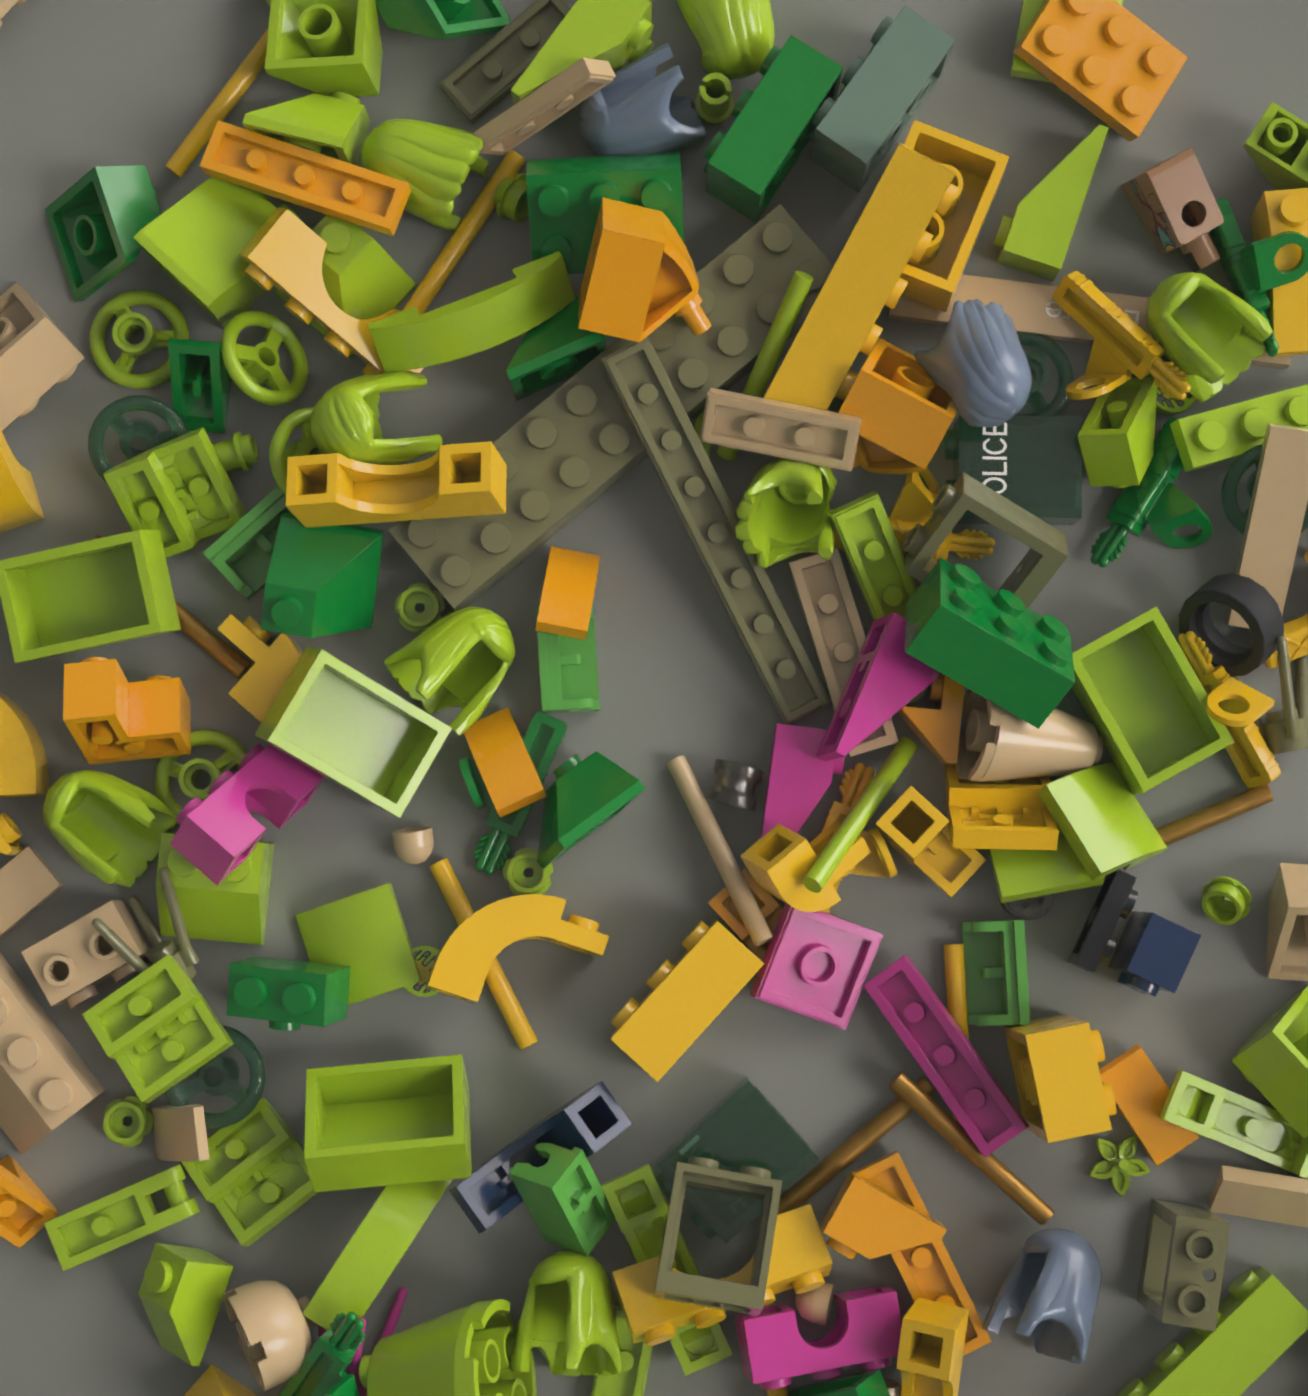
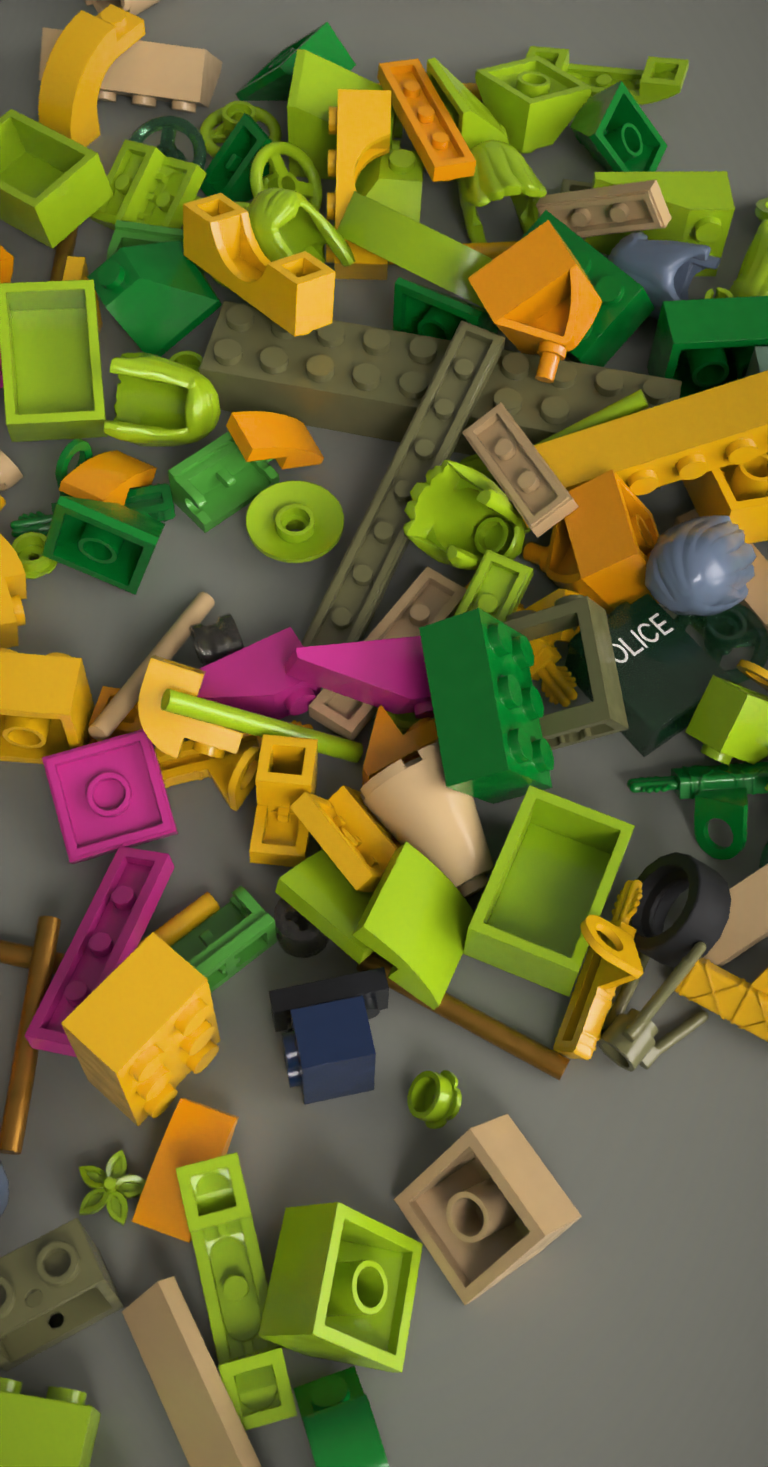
camera: 45 degrees right, 25 degrees down
(654, 609) = (291, 507): none -> lime dish

